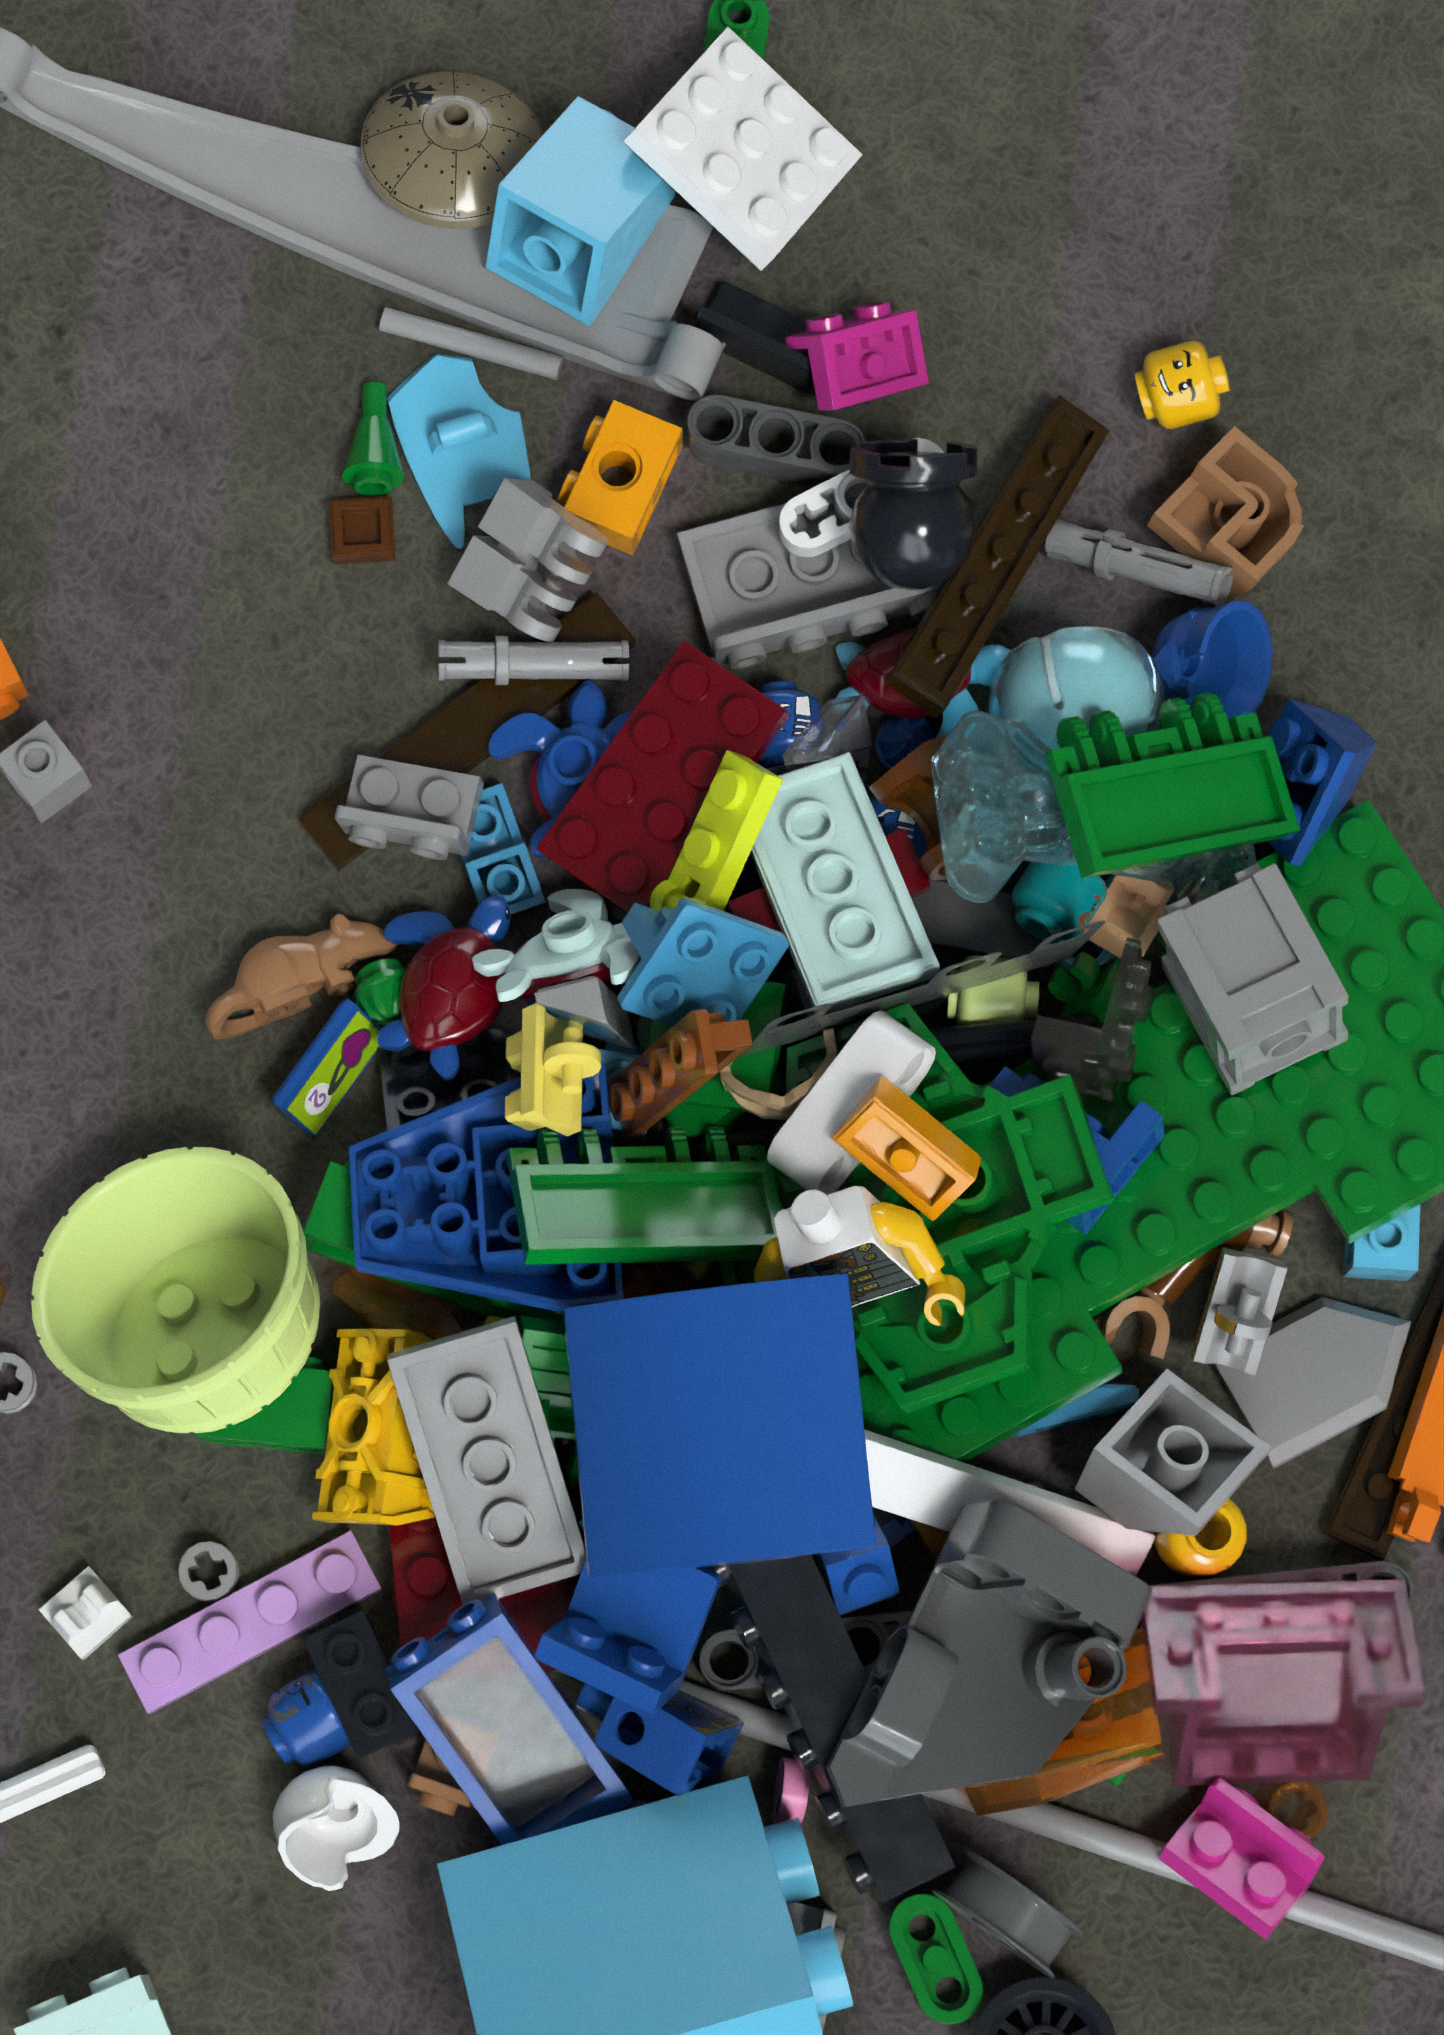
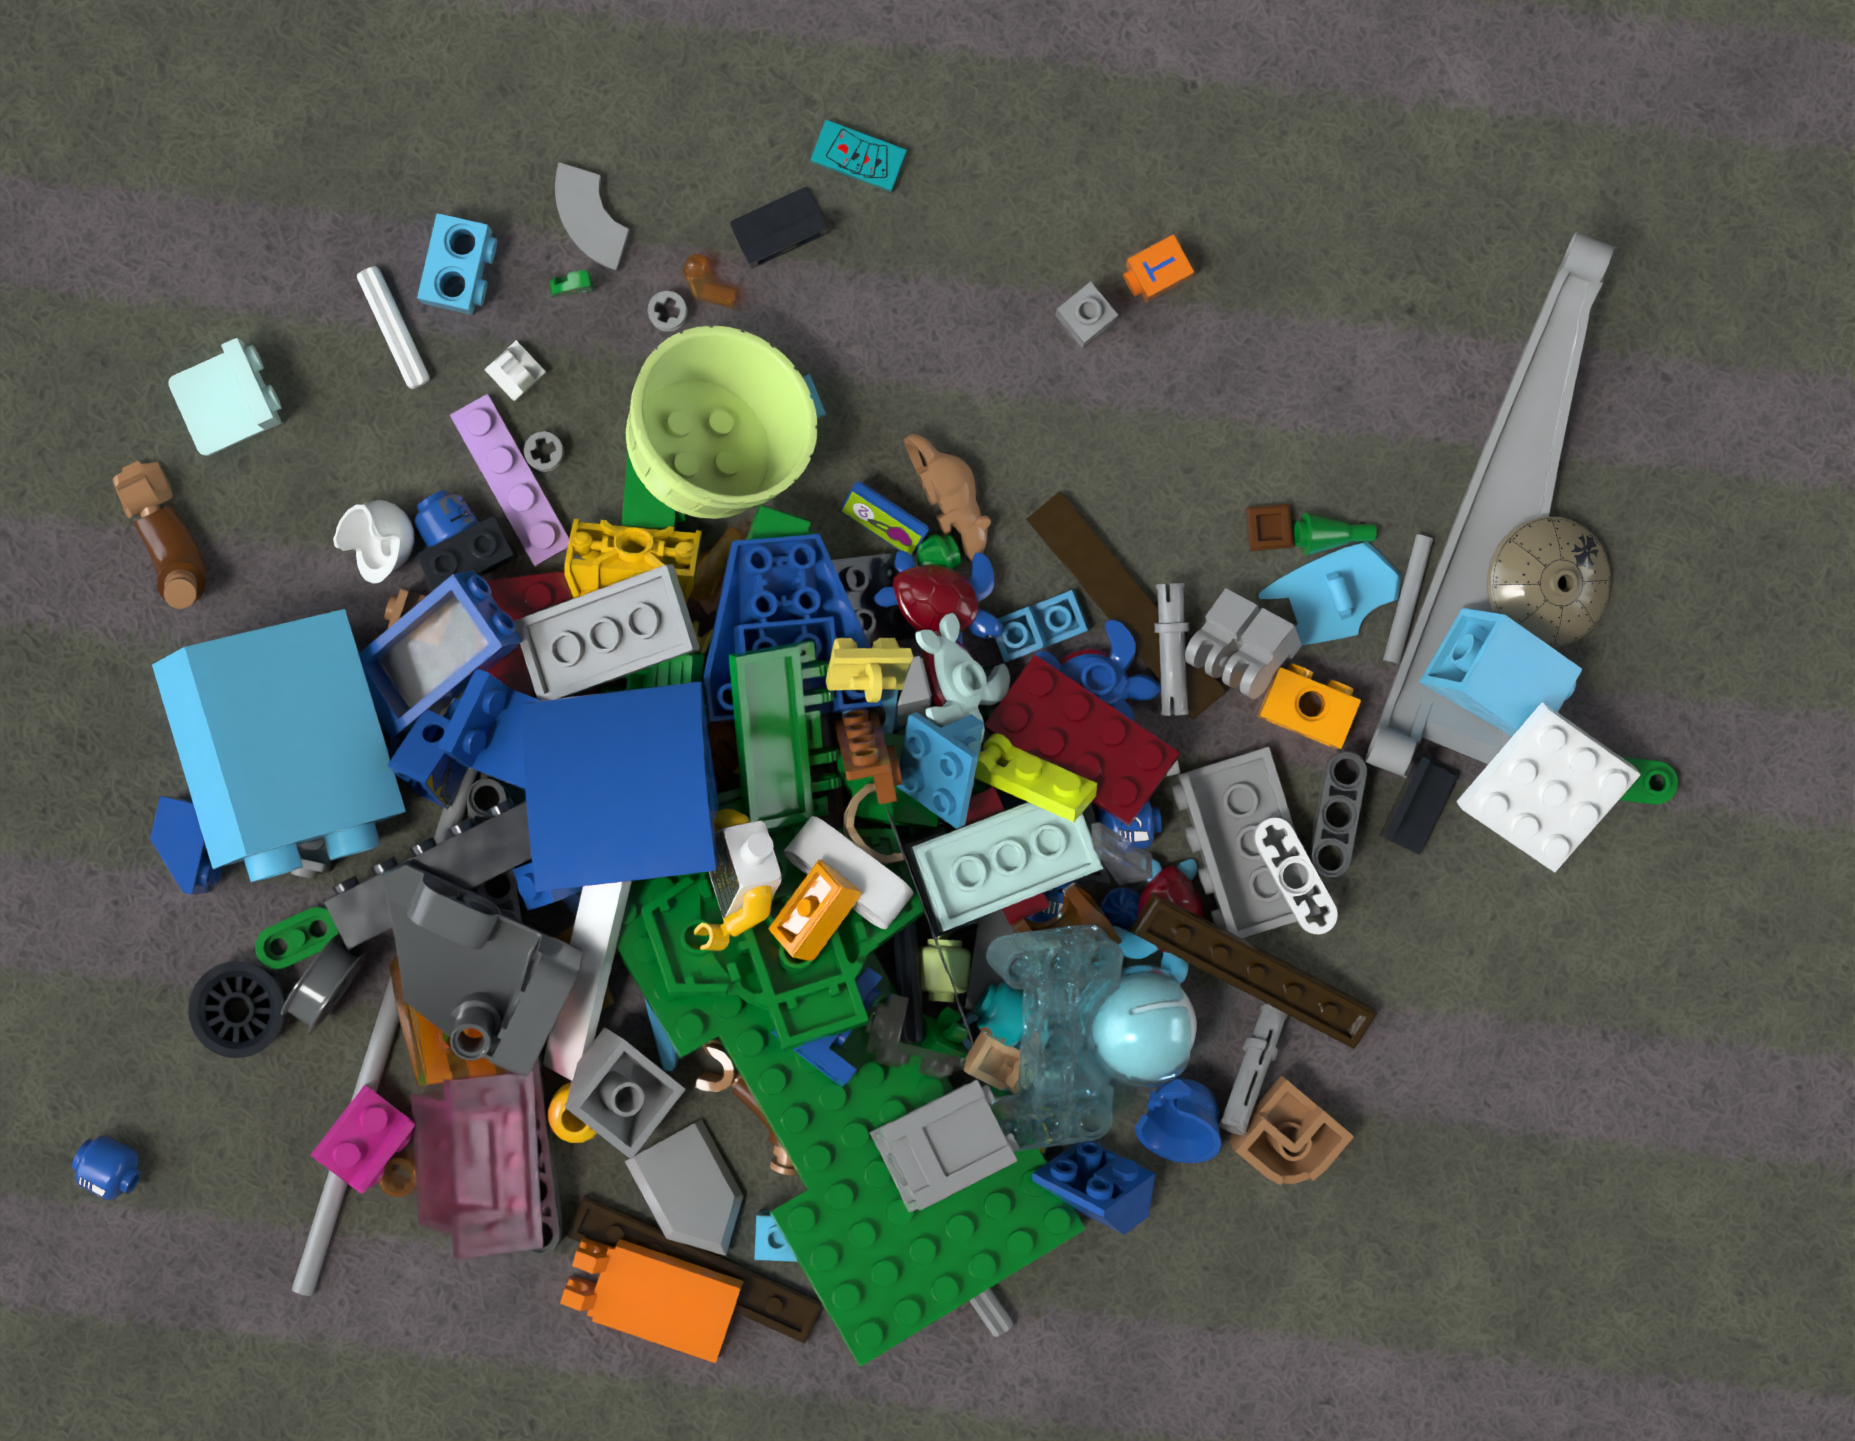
camera: 90 degrees right, 10 degrees up
(411, 807) = (1066, 569): light grey bracket -> none
(790, 1791) = (401, 840): bright pink tile -> none
(862, 356) = (1401, 873): dark pink bracket -> none
(913, 516) = (1272, 909): black tile -> none
(1169, 790) = (1068, 1094): green hinge -> none
(1181, 385) = (1386, 1099): yellow head -> none
(1239, 1310) = (727, 1138): light grey hips -> none

